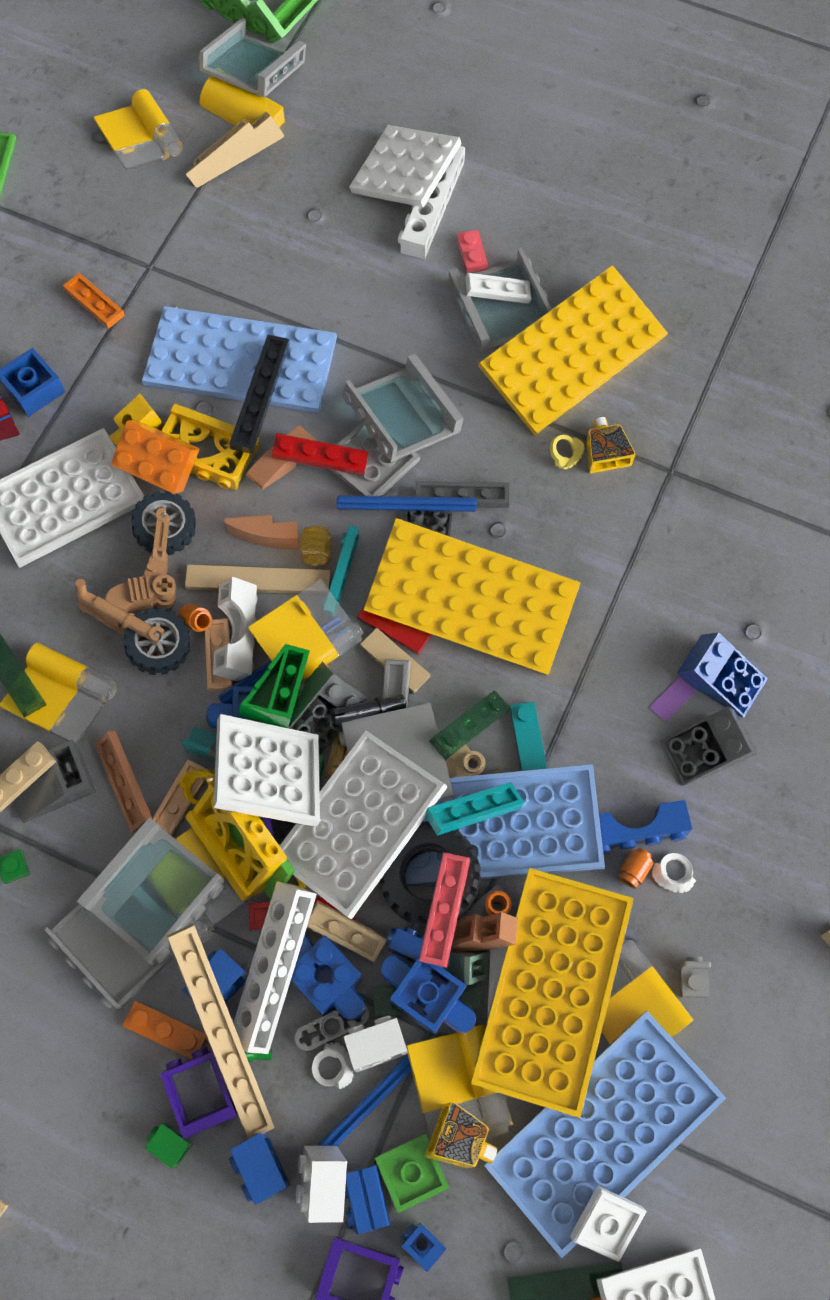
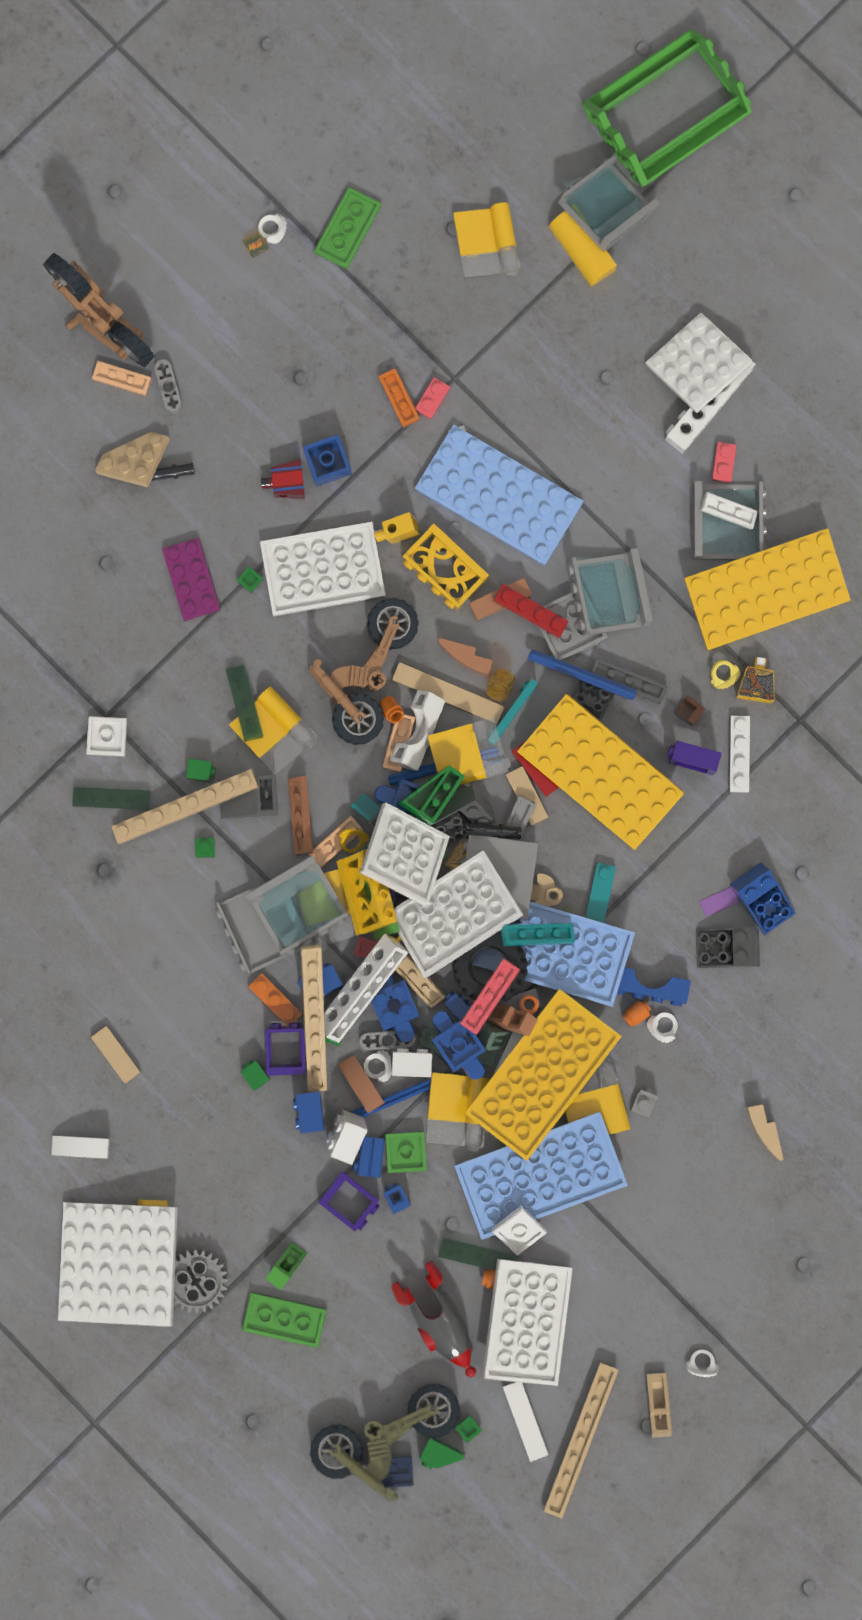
camera: 20 degrees right, 15 degrees up
(132, 290) = (432, 398): none -> coral plate
(154, 456) = (404, 569): orange brick -> none
(234, 147) = (562, 289): tan wedge -> none
(259, 394) = (502, 540): black plate -> none
(318, 1100) = (361, 1084): none -> nougat slope
(459, 1139) = (444, 1143): torso -> none
(469, 725) = (560, 869): clear green plate -> none
(545, 500) = (689, 711): none -> reddish brown panel
(573, 544) = (694, 757): none -> dark purple window
(621, 529) = (739, 754): none -> white plate

